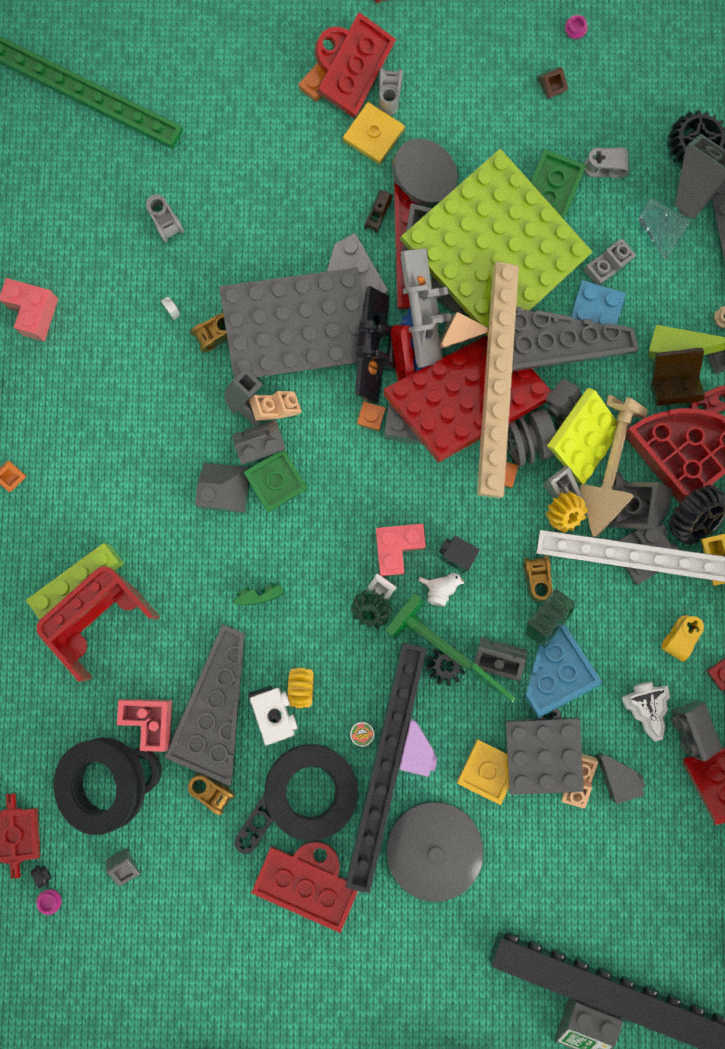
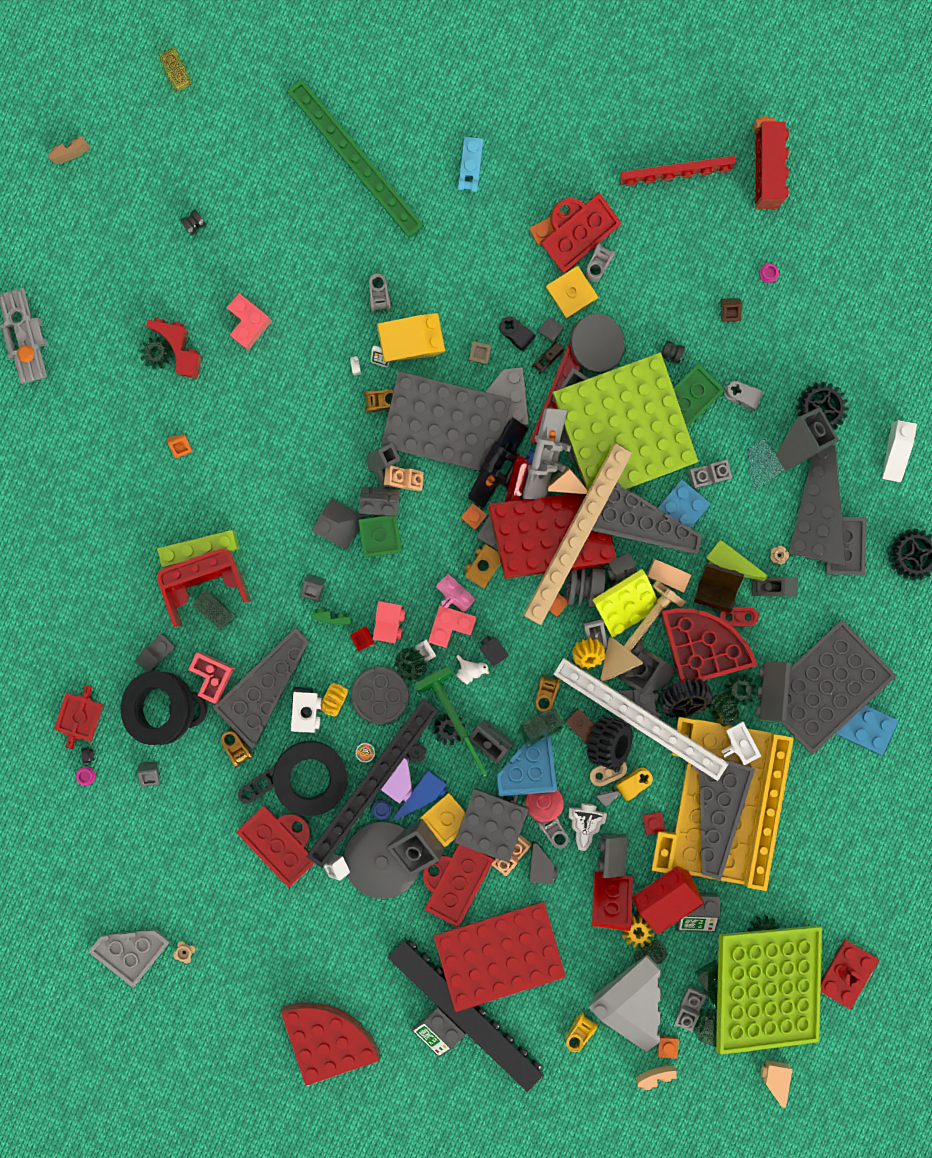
camera: 20 degrees right, 5 degrees up
(74, 722) = (155, 653): none -> dark grey slope
(121, 643) = (214, 610): none -> clear green brick
(194, 284) = (377, 357): none -> slope
(206, 44) = (470, 163): none -> medium azure plate
(219, 248) = (411, 338): none -> yellow slope
(223, 571) = (312, 587): none -> flat silver slope
(302, 236) = (480, 353): none -> dark tan plate
(304, 604) = (362, 639): none -> red plate
(325, 573) = (388, 622): none -> coral brick
(334, 198) = (518, 334): none -> black piece
(351, 661) = (379, 695): none -> dark grey tile
(368, 182) = (550, 329): none -> dark grey slope
(386, 884) = (336, 867): none -> white slope
(387, 509) = (455, 594): none -> bright pink plate
(409, 792) = (381, 809): none -> blue plate
(414, 453) = (479, 577): none -> pearl gold brick
(425, 713) = (417, 757): none -> black plate
(450, 751) = (425, 792): none -> blue slope
(469, 820) = (416, 848): none -> dark grey slope
(513, 149) = (675, 353): none -> pearl dark grey wheel
(530, 842) = (456, 883): none -> red plate
(594, 707) = (544, 806): none -> coral tile
(599, 598) = (580, 724): none -> reddish brown brick
(613, 728) = (552, 829): none -> light grey piece
(616, 387) = (668, 575): none -> light nougat slope
(619, 908) = (499, 956): none -> red plate
(637, 602) = (609, 743): none -> black tyre
(646, 638) = (608, 775): none -> tan plate
(659, 666) = (607, 796): none -> flat silver slope

